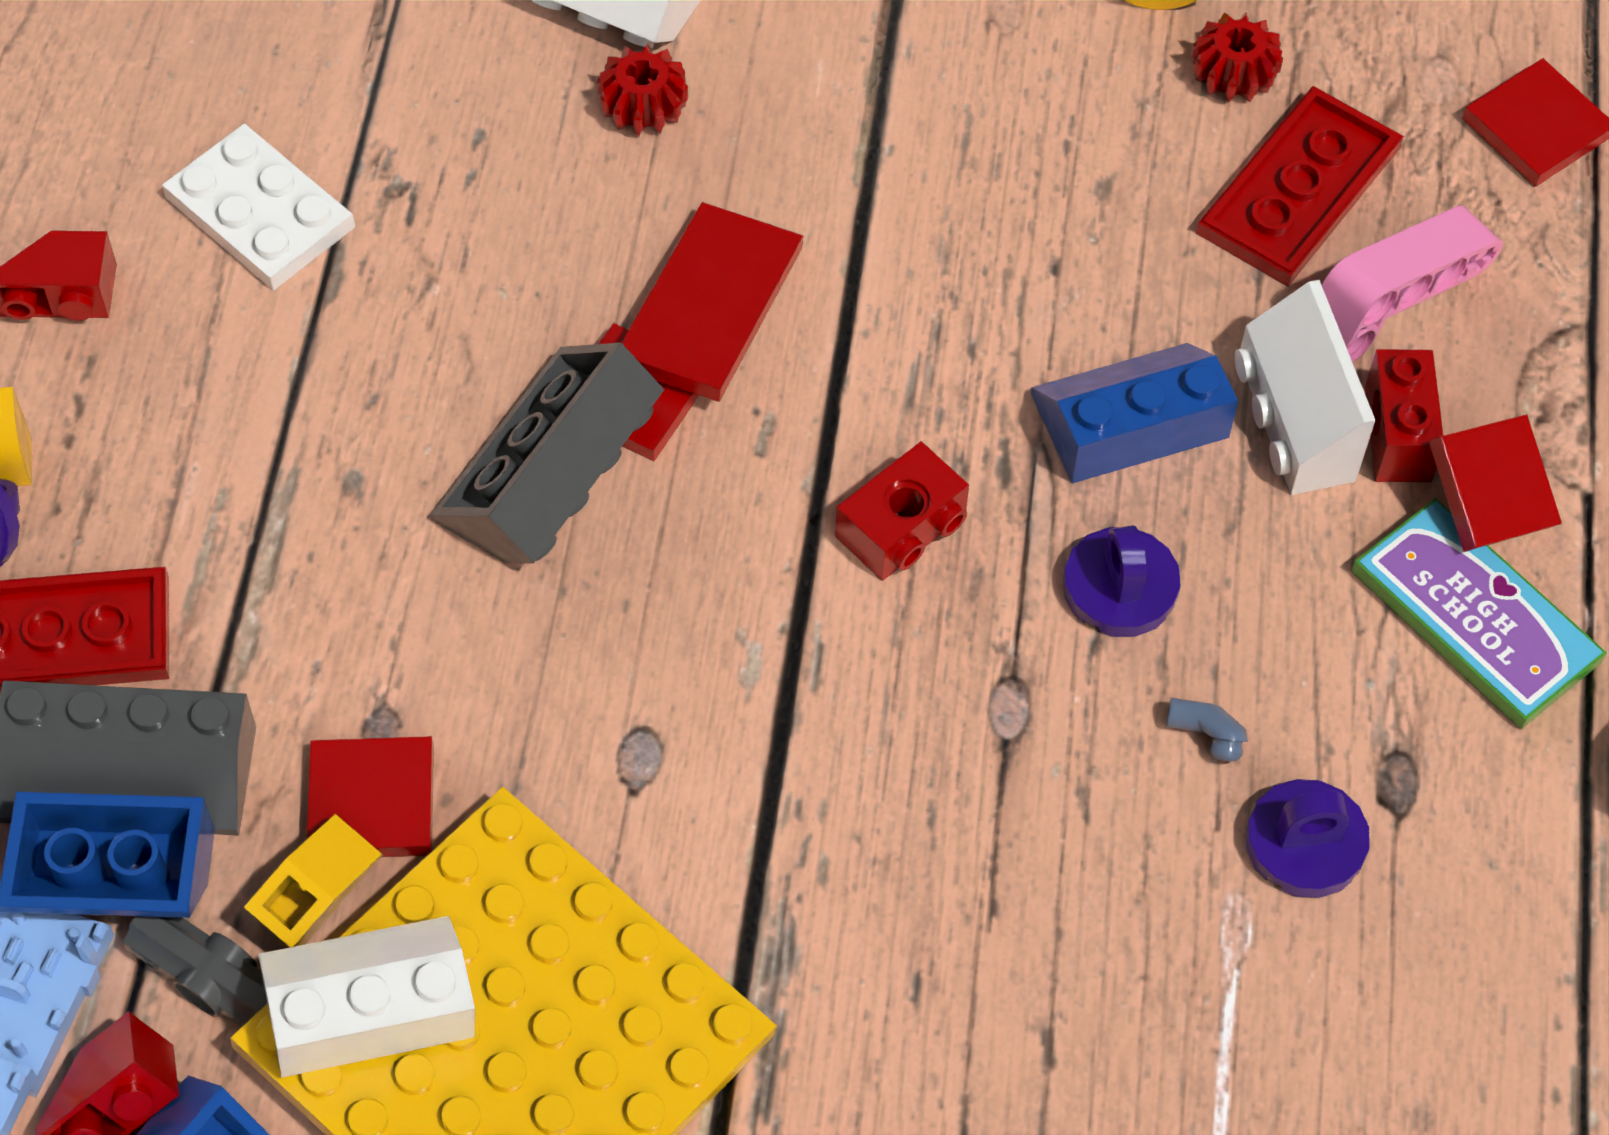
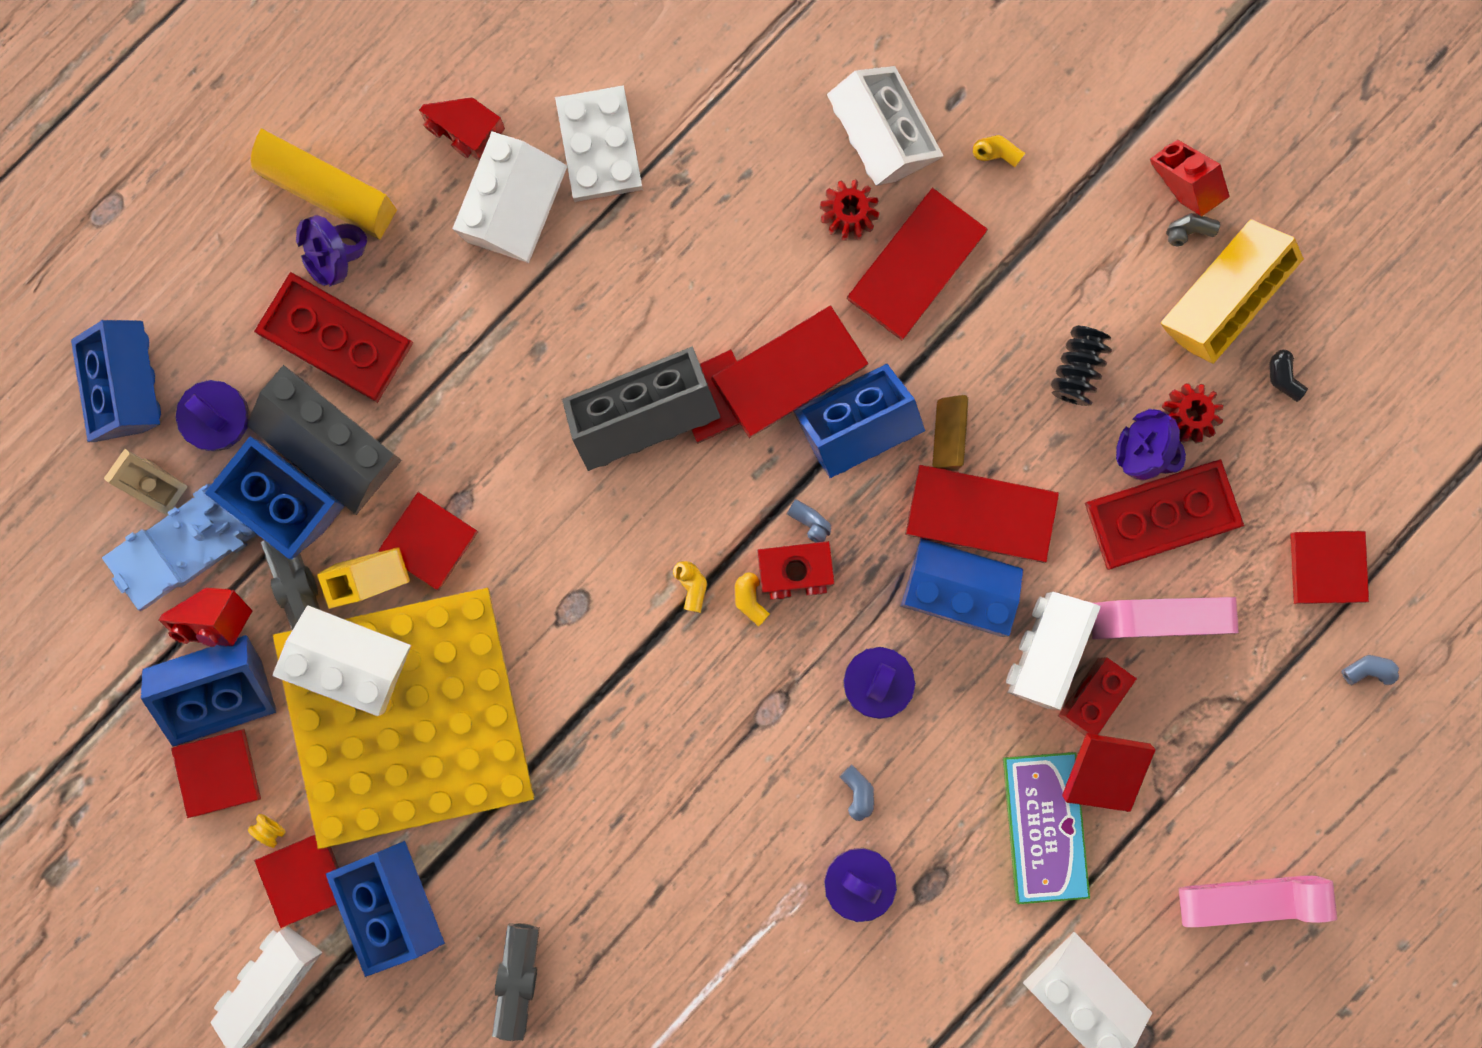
camera: 35 degrees right, 25 degrees up
(184, 319) = (509, 197): none -> white slope
(773, 104) = (917, 264): none -> red tile
(783, 618) = (693, 582): none -> yellow arm
(846, 299) = (860, 420): none -> blue slope
(867, 591) = (746, 598): none -> yellow arm
(875, 448) = (810, 517): none -> sand blue arm
(970, 247) = (950, 432): none -> pearl gold slope
(1064, 81) = (1080, 365): none -> black piece
(1083, 314) = (982, 513): none -> red tile
(1220, 109) = (1150, 446): none -> dark purple tile

